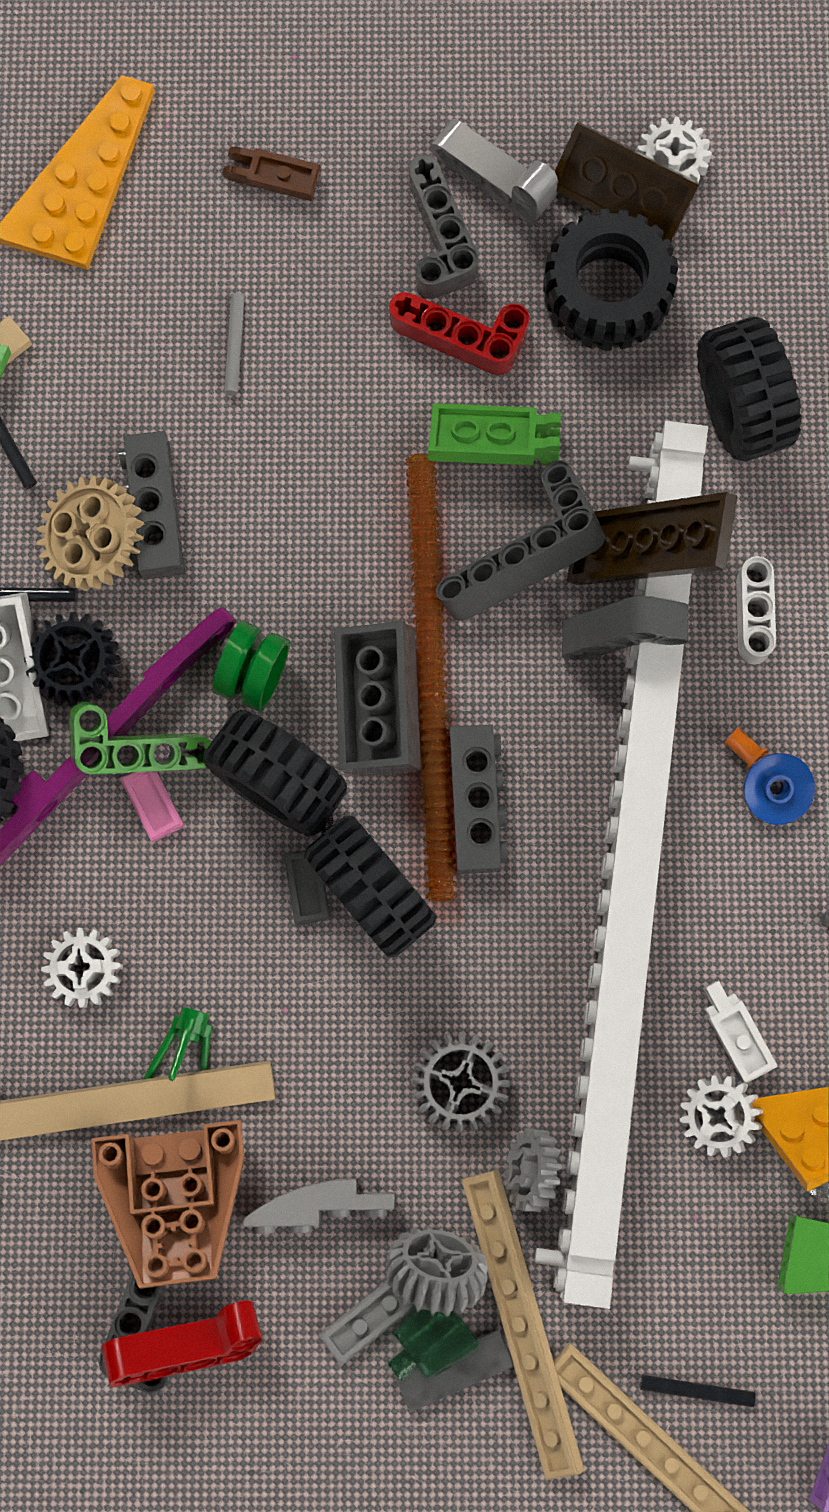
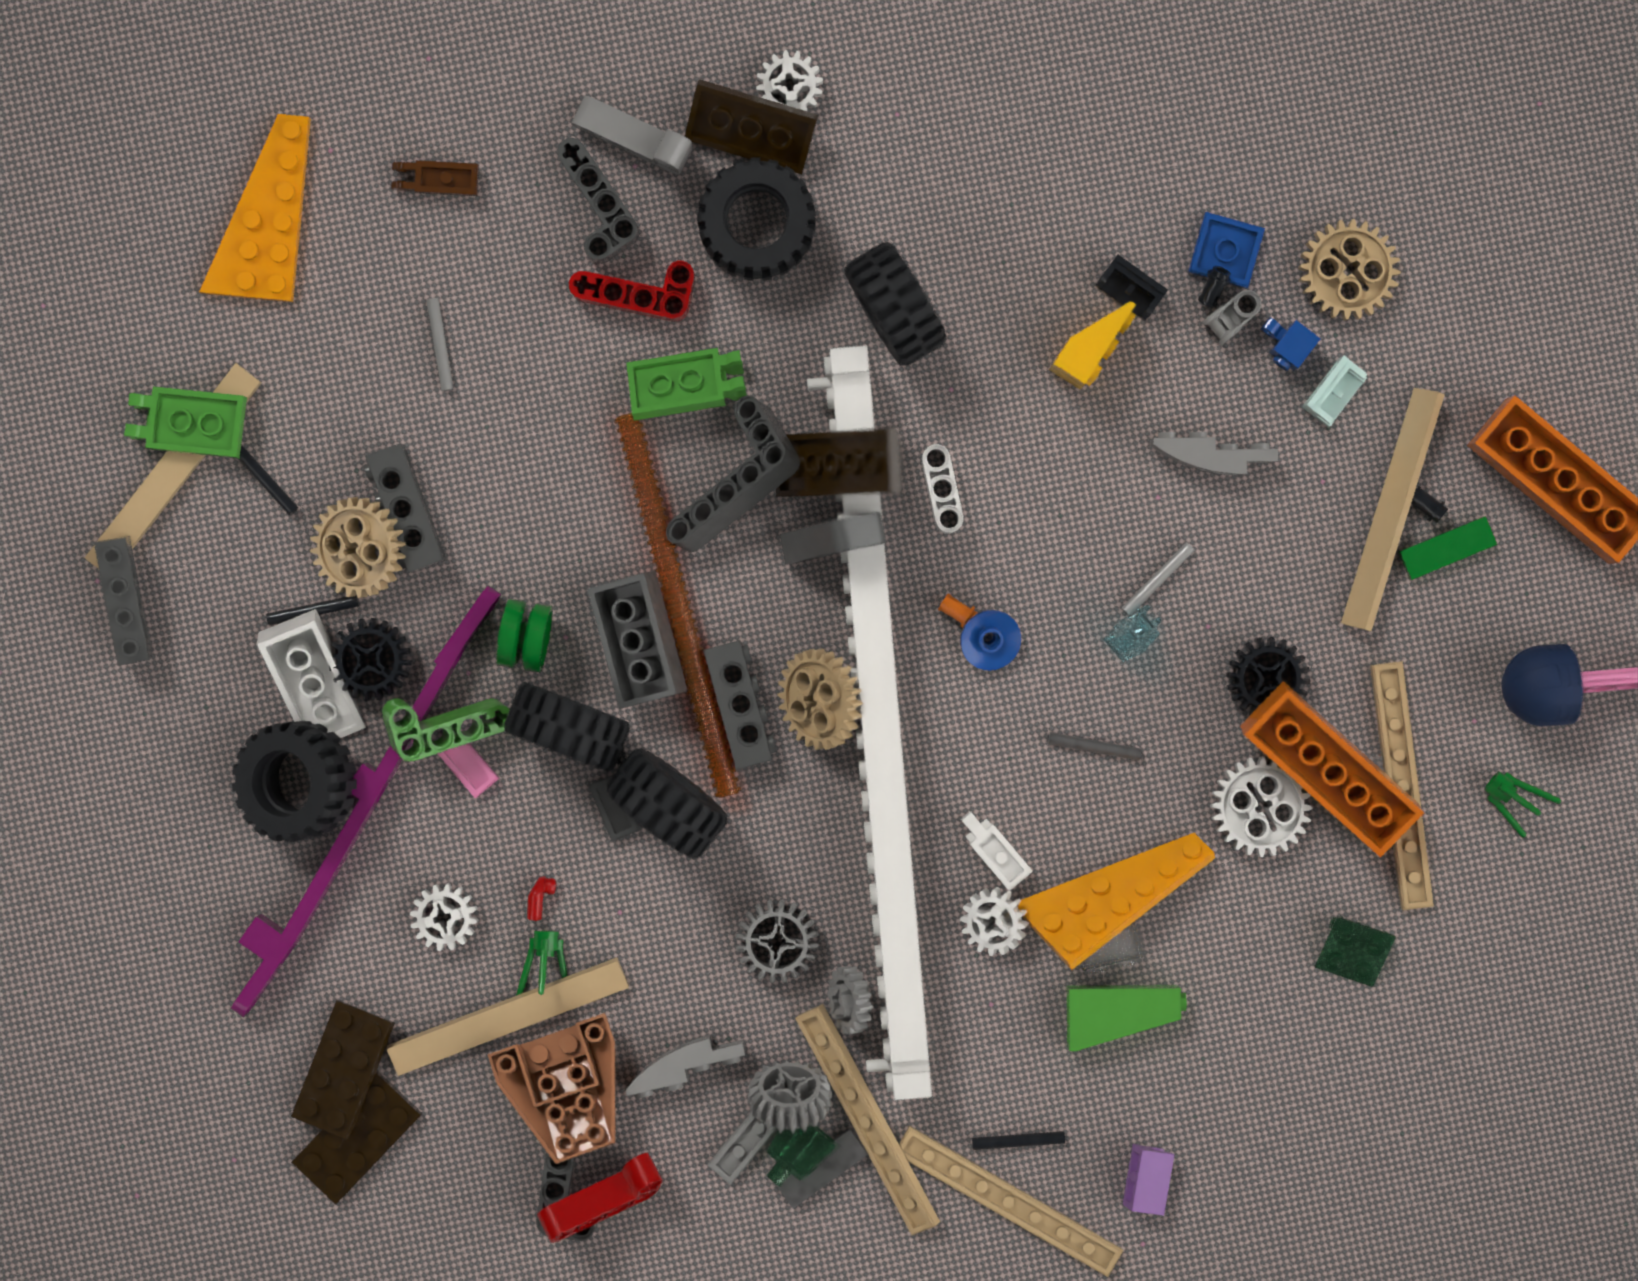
camera: 15 degrees left, 10 degrees up
(194, 966) = (536, 895): none -> red arm
(572, 809) = (820, 699): none -> tan gear

